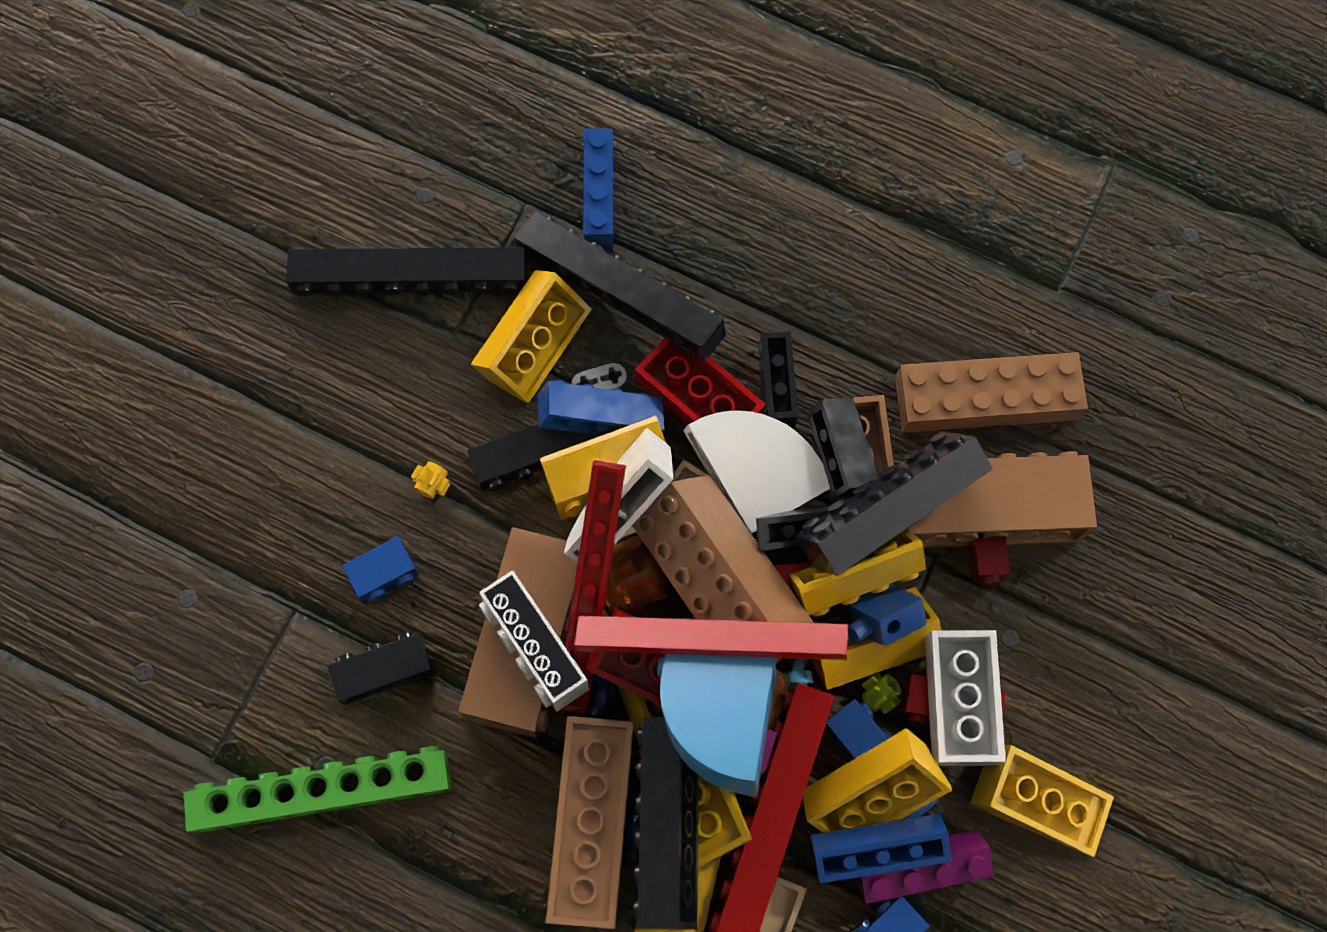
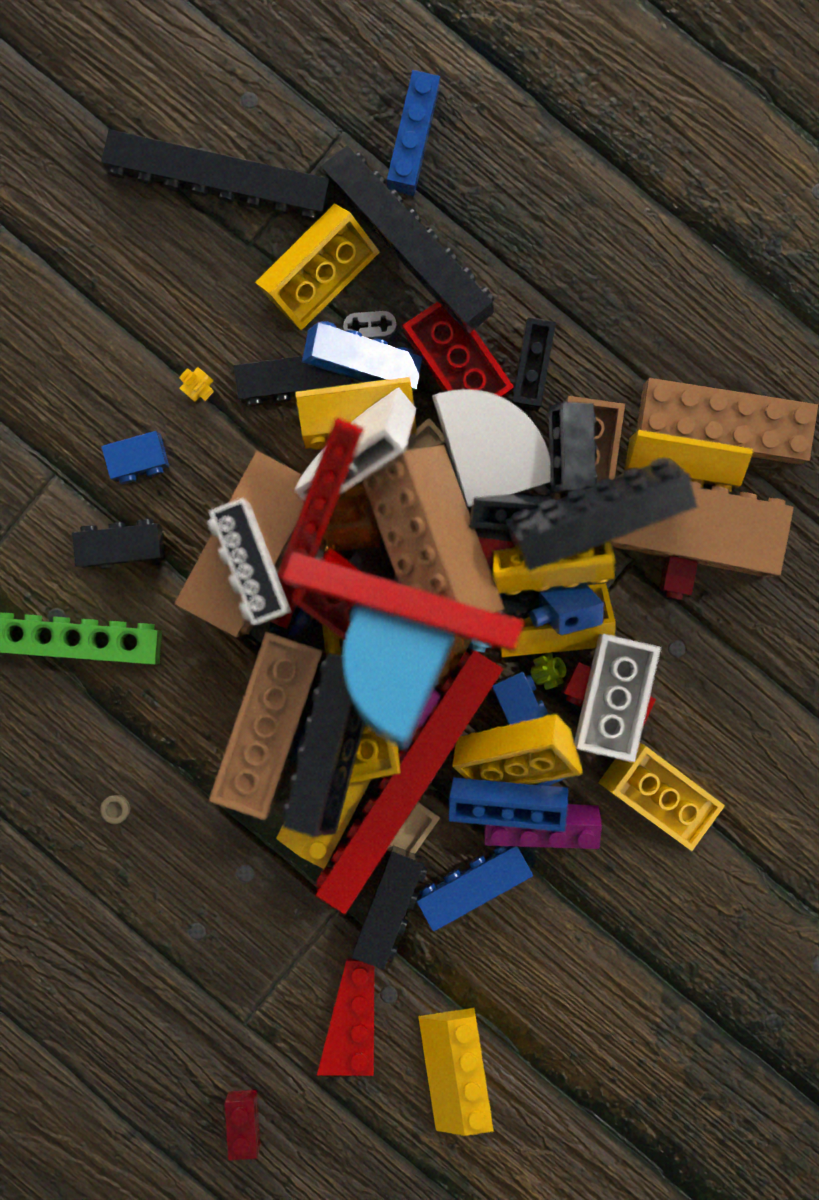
camera: 15 degrees right, 15 degrees up
(995, 430) = (703, 460): none -> yellow slope

